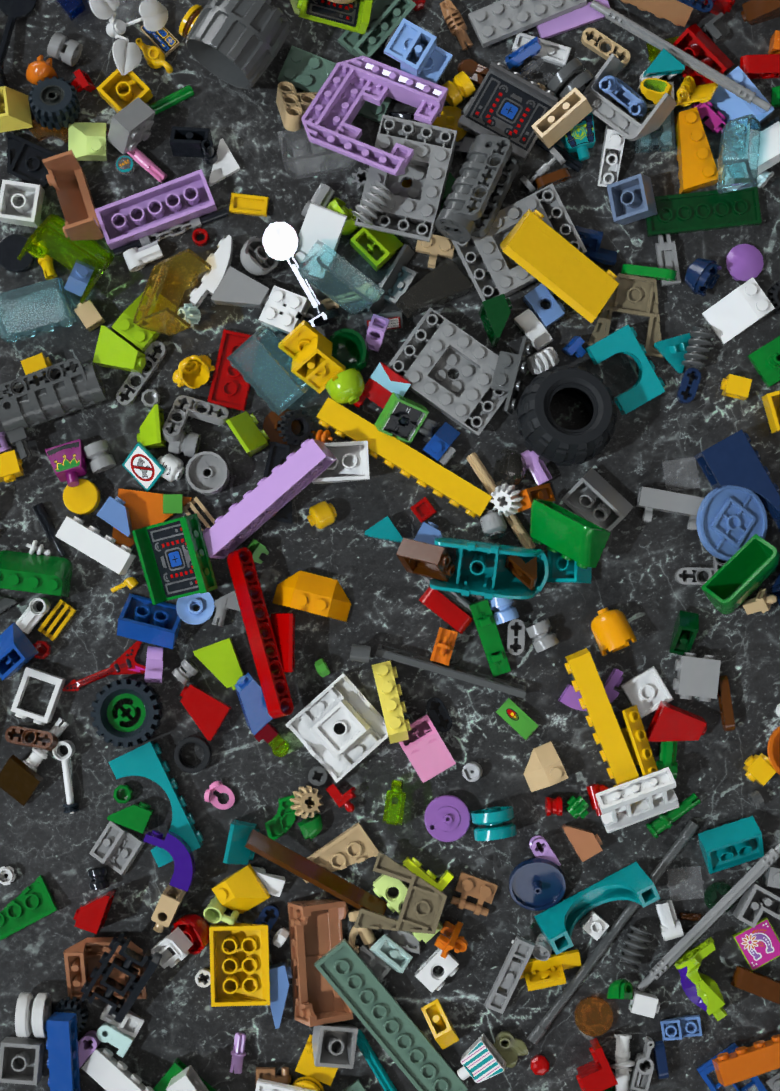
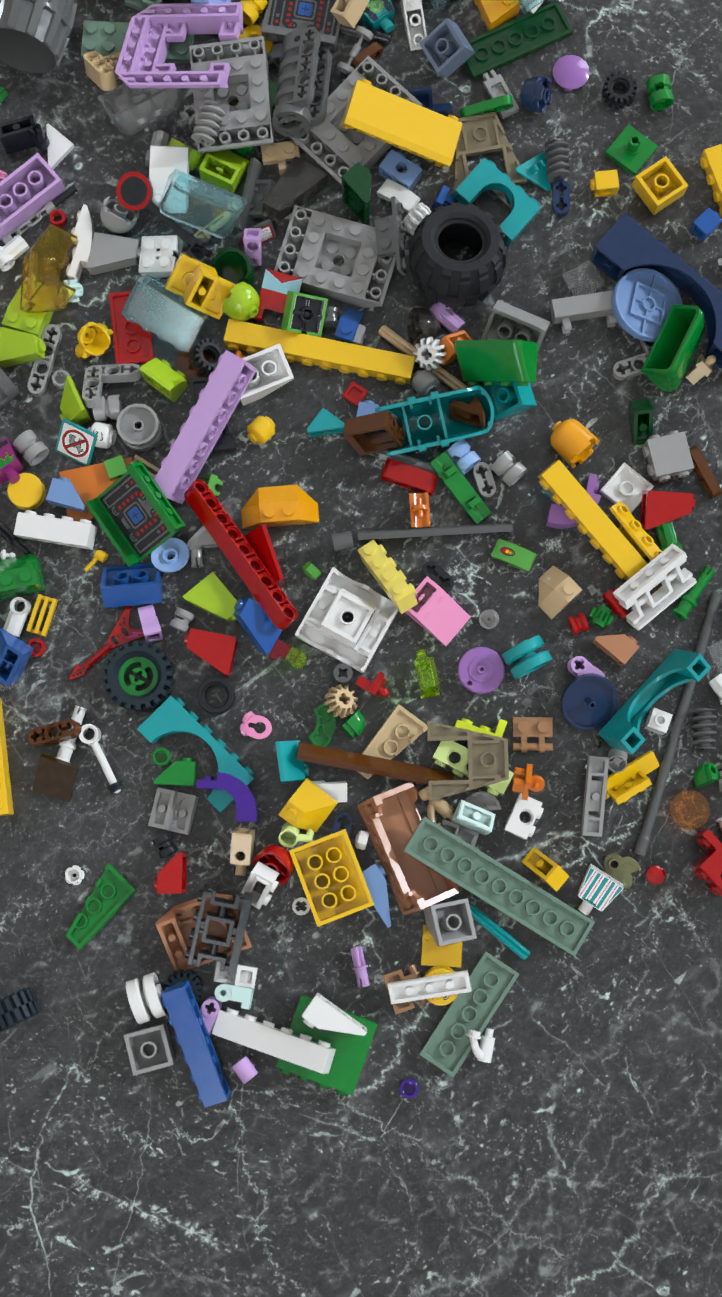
camera: 15 degrees left, 5 degrees down
(44, 676) = (39, 671): white window -> none
(249, 204) = (93, 175): yellow tile -> none
(738, 310) = (581, 115): white slope -> none

